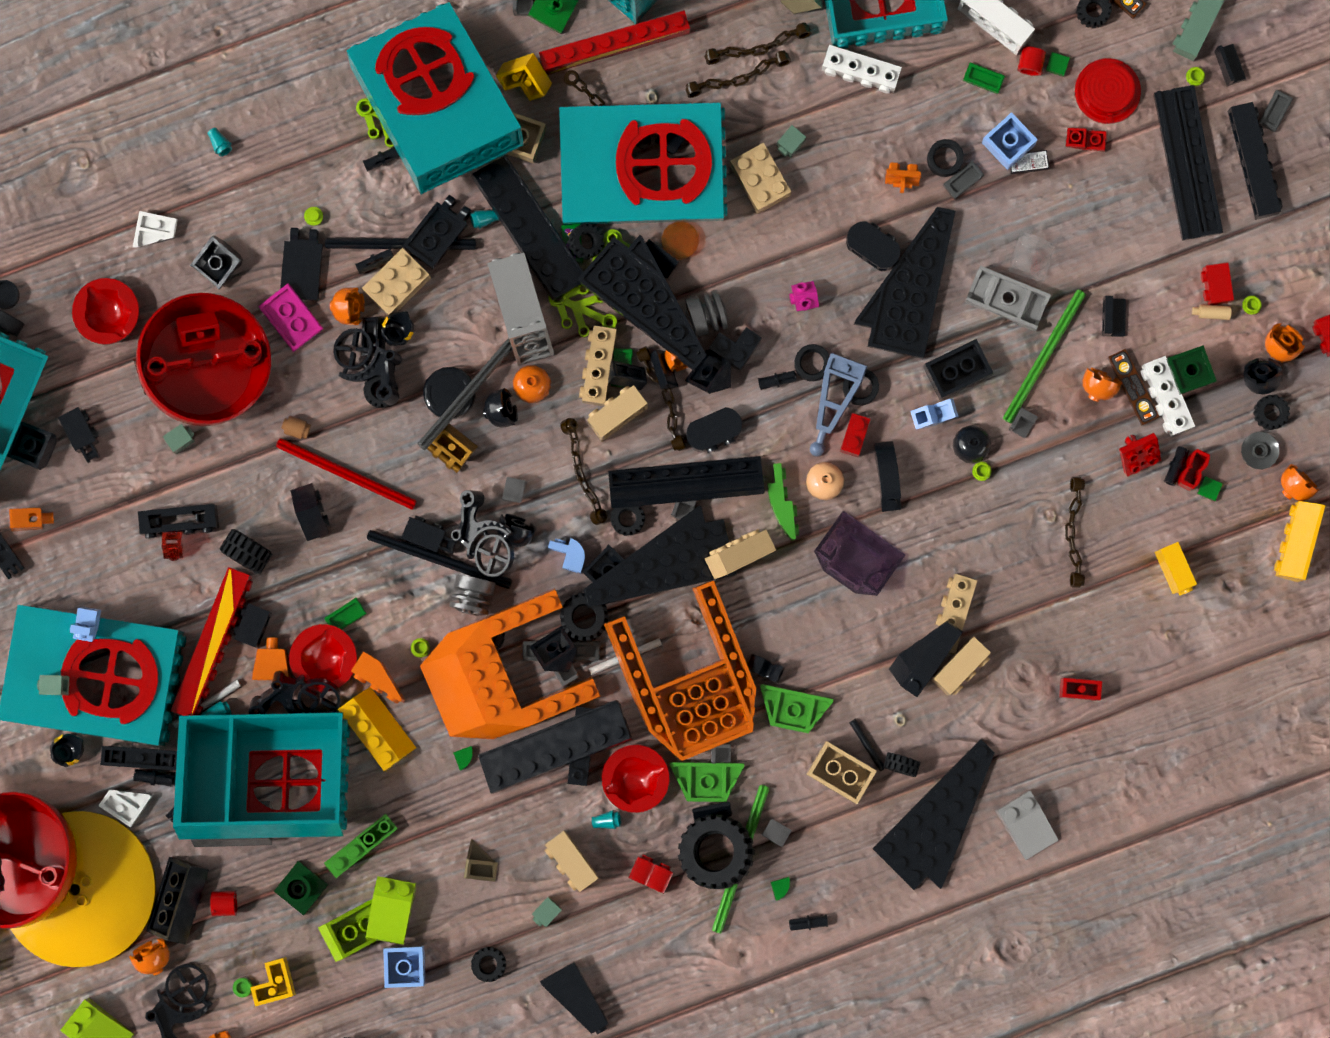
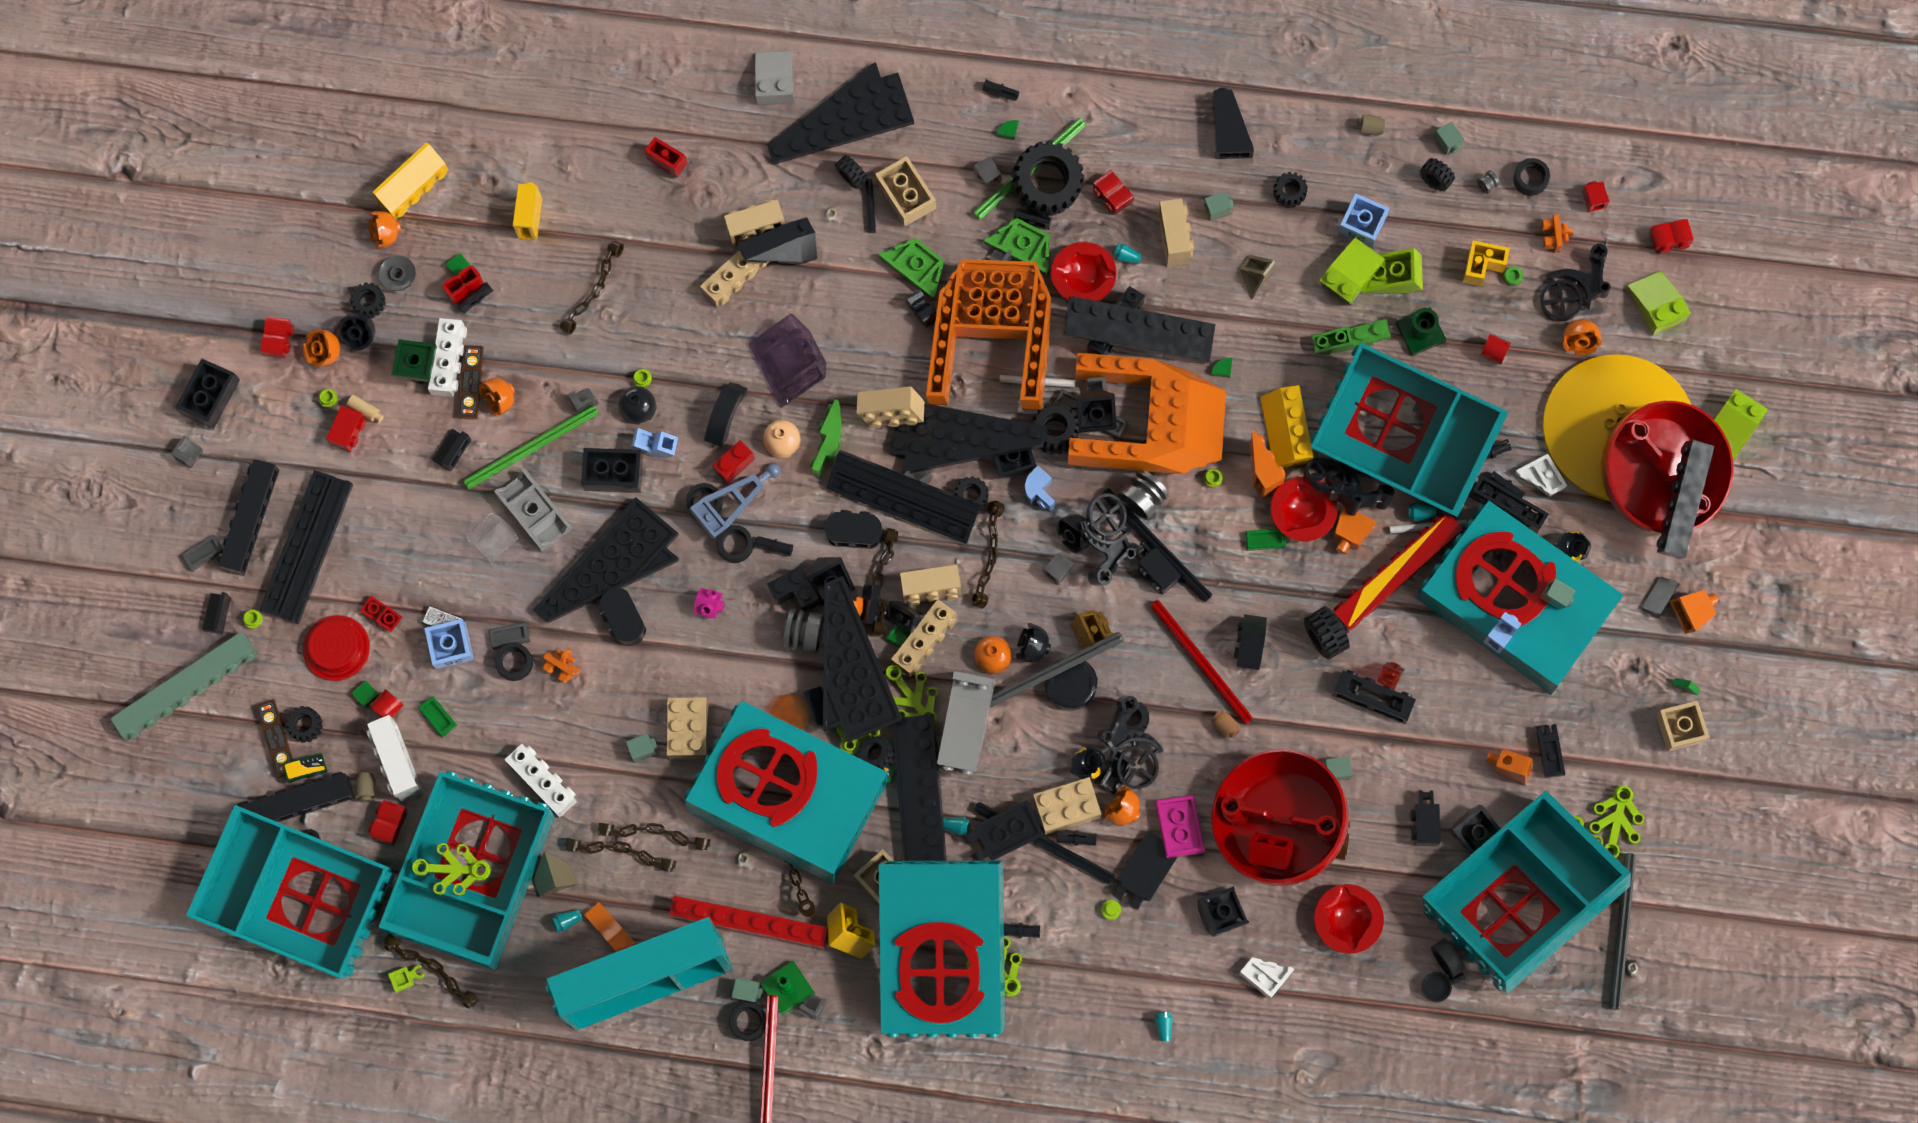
camera: 150 degrees left, 10 degrees down
(177, 901) = (1535, 372): black slope -> none
(252, 625) = (1353, 570): black brick -> none
(1139, 453) = (500, 320): red plate -> none

